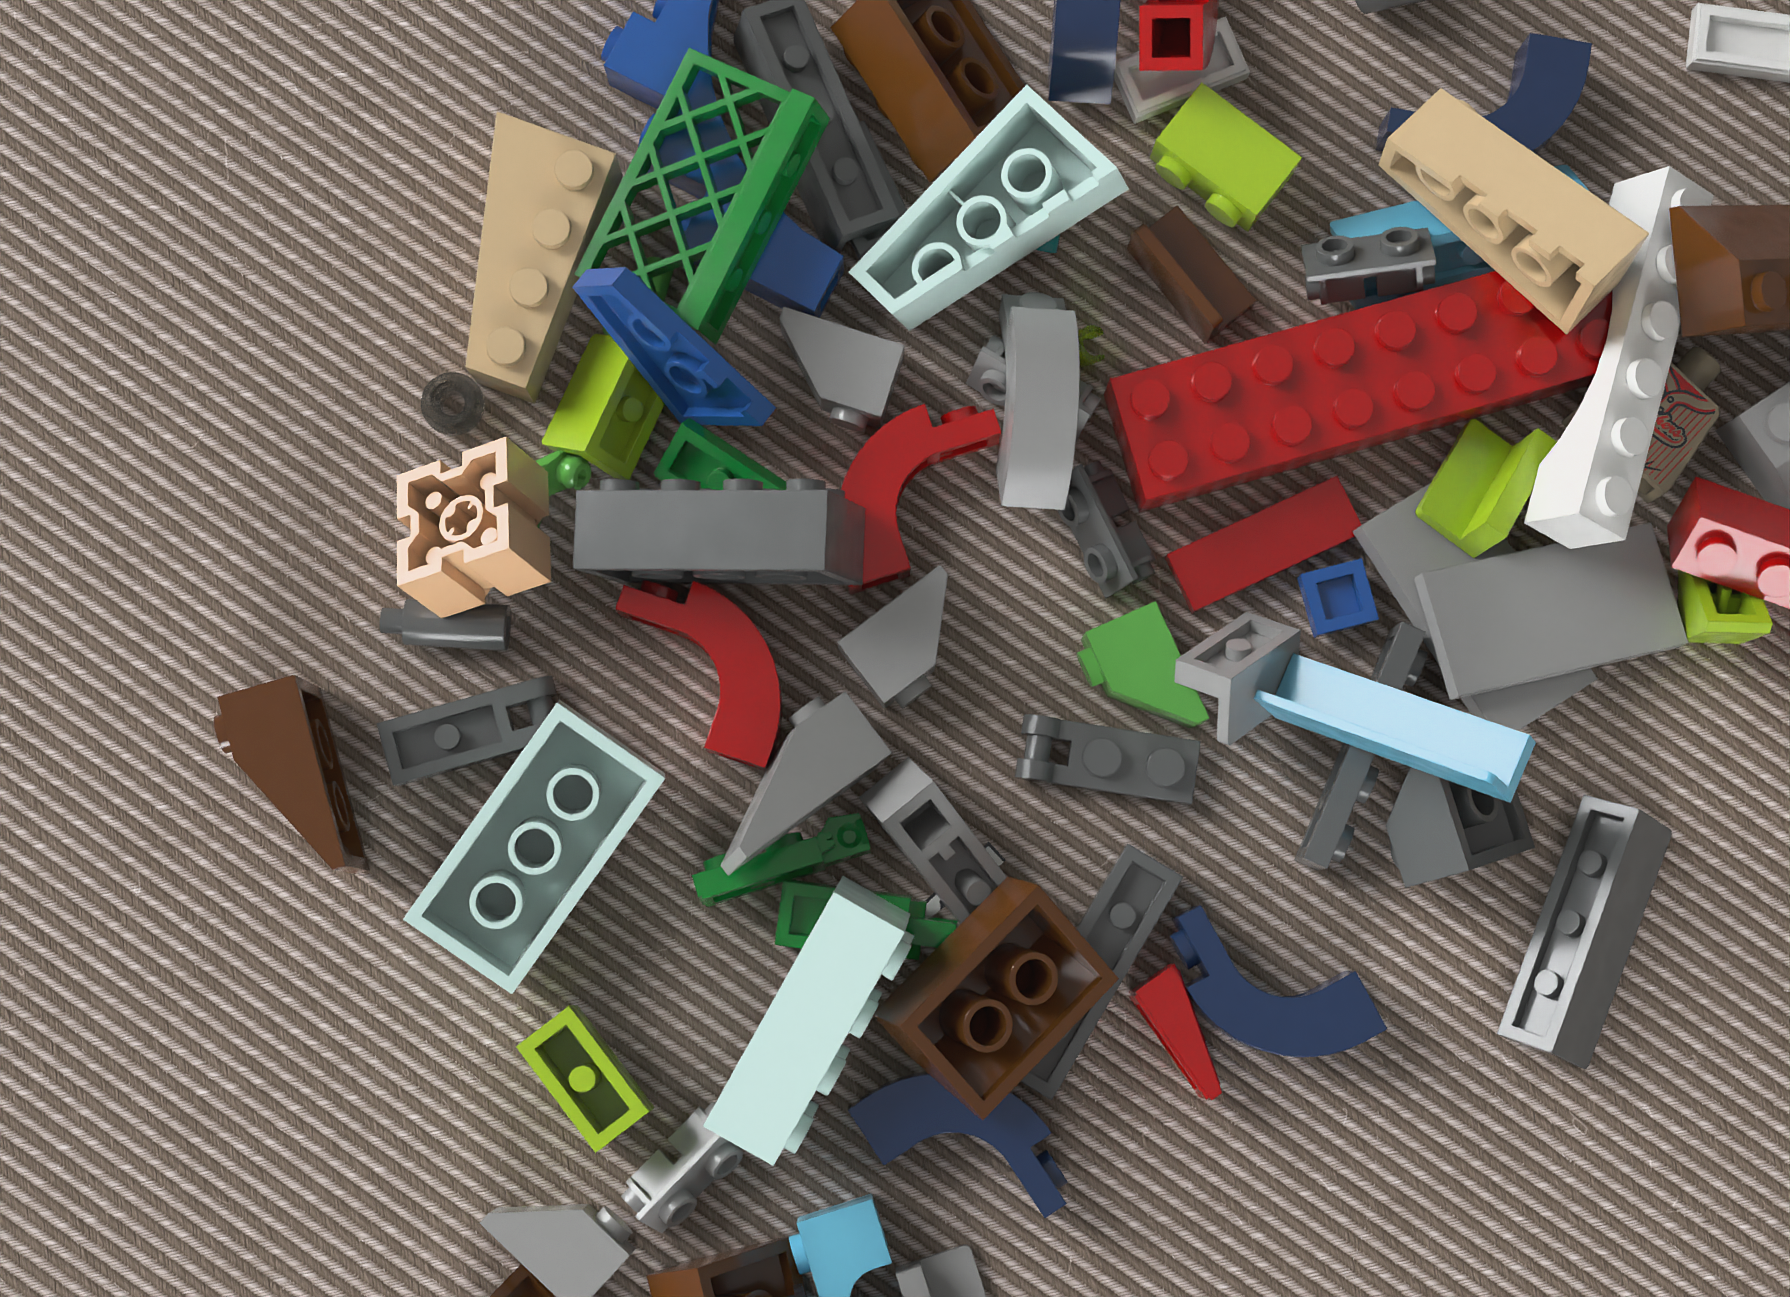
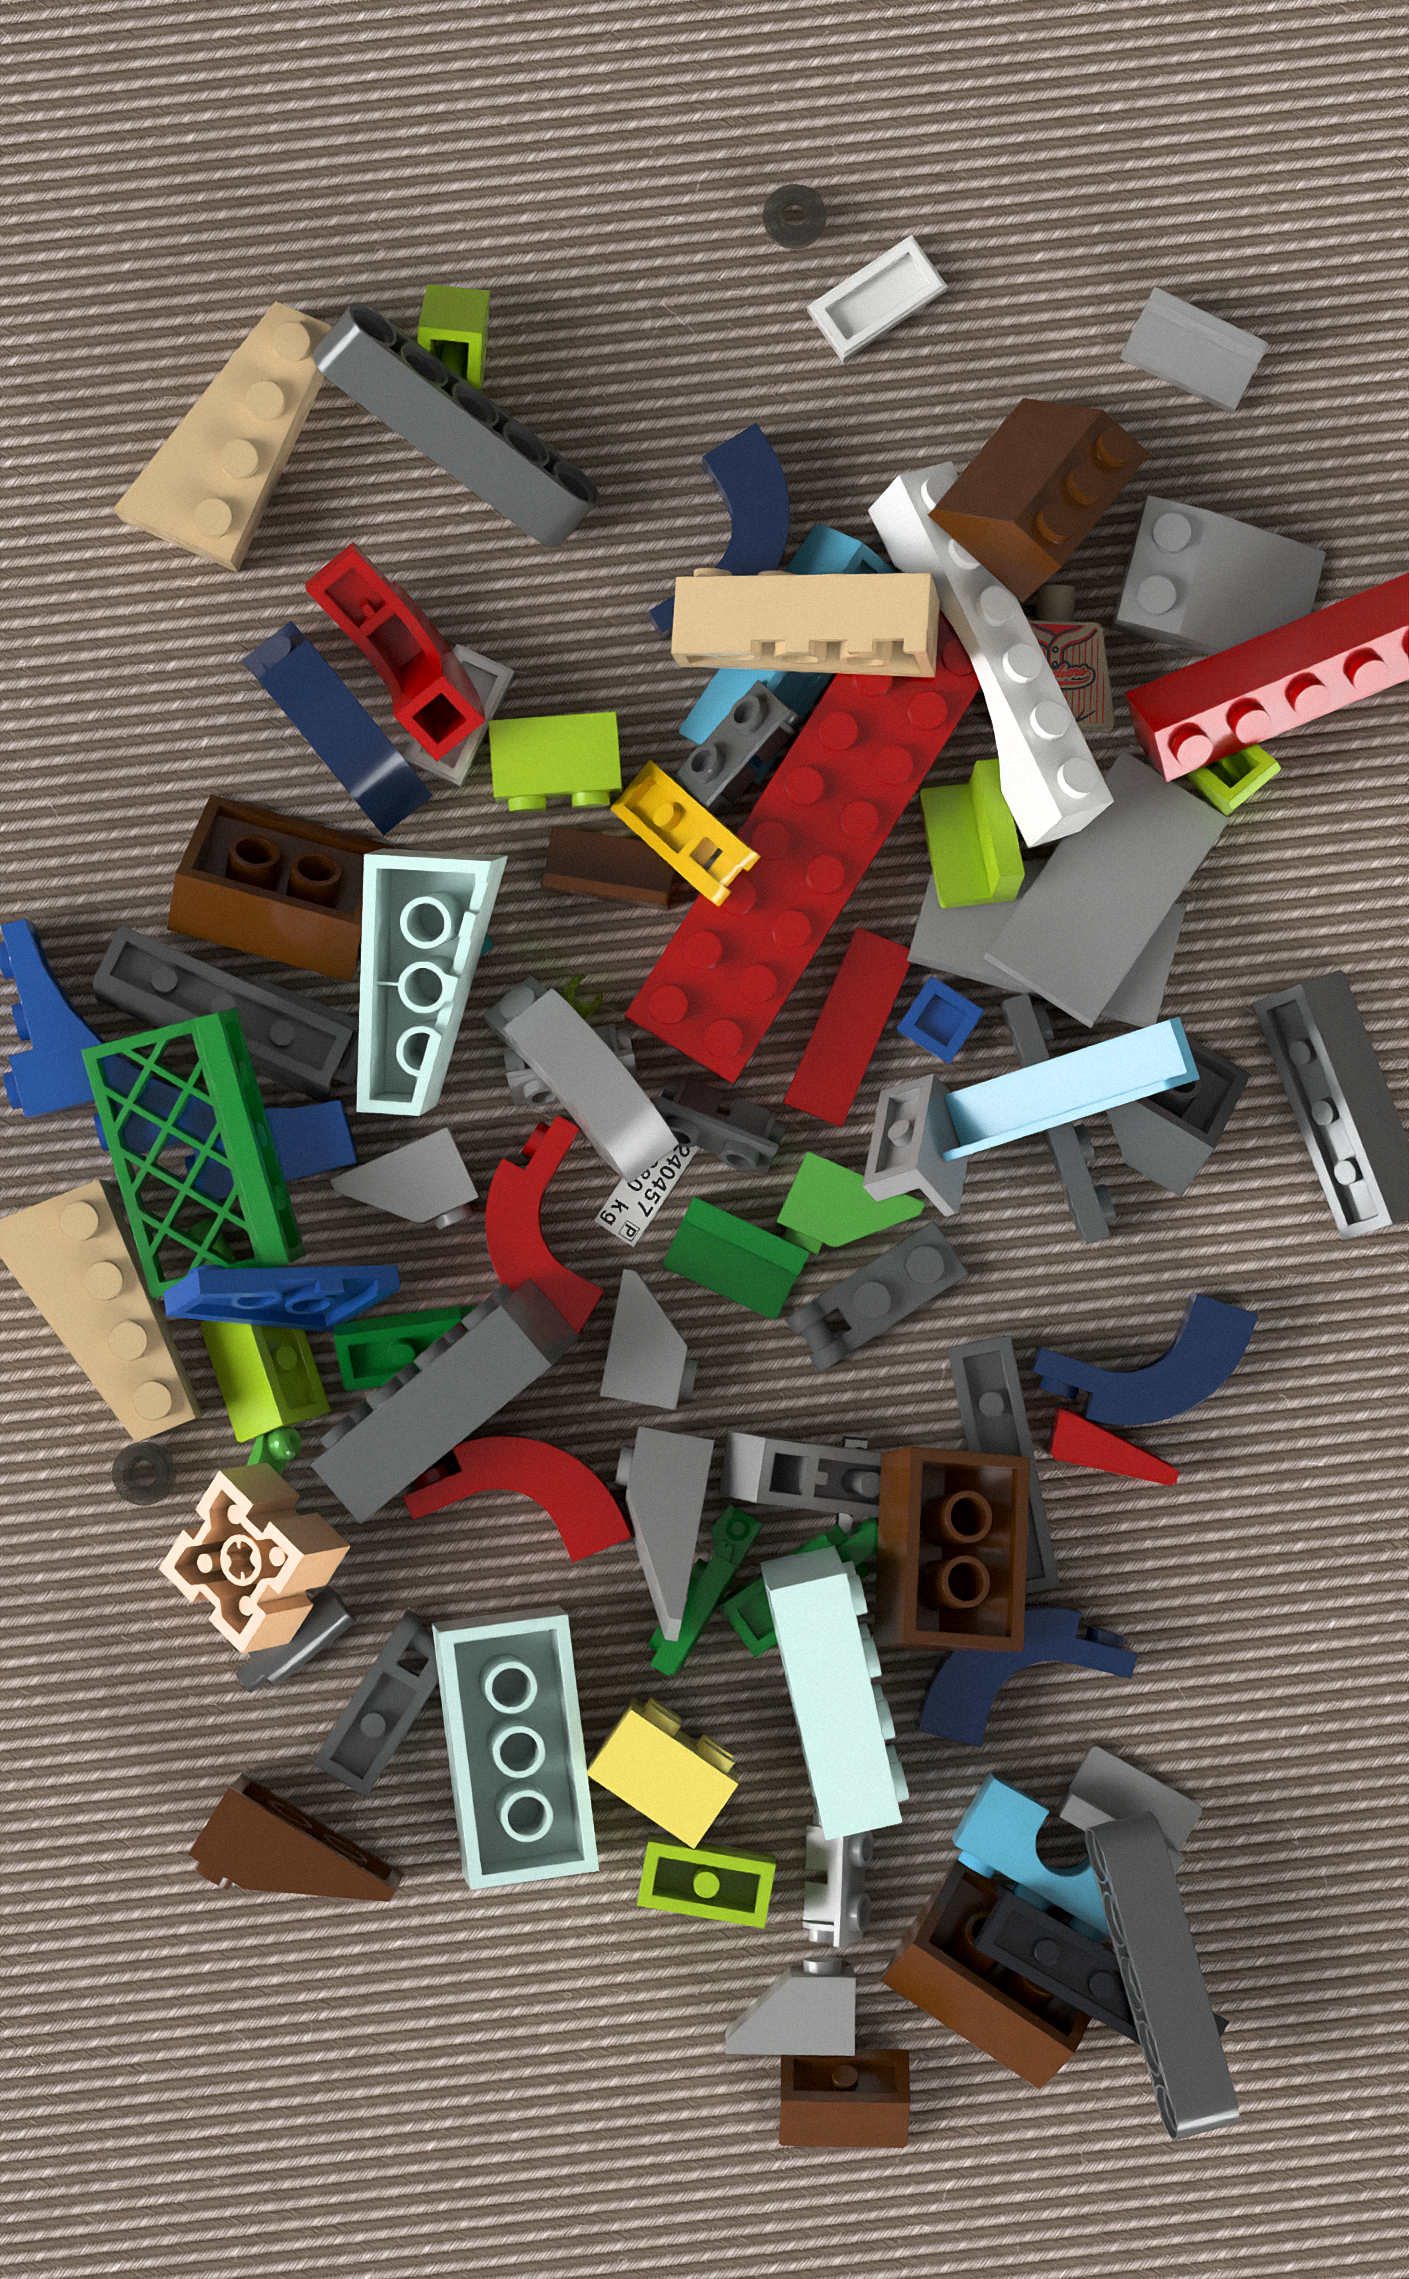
camera: 40 degrees left, 5 degrees up
(630, 964) = (665, 1770): none -> light yellow brick
(1004, 530) = (635, 1204): none -> white sticker
(1029, 636) = (735, 1258): none -> green panel
(1274, 288) = (683, 832): none -> yellow plate

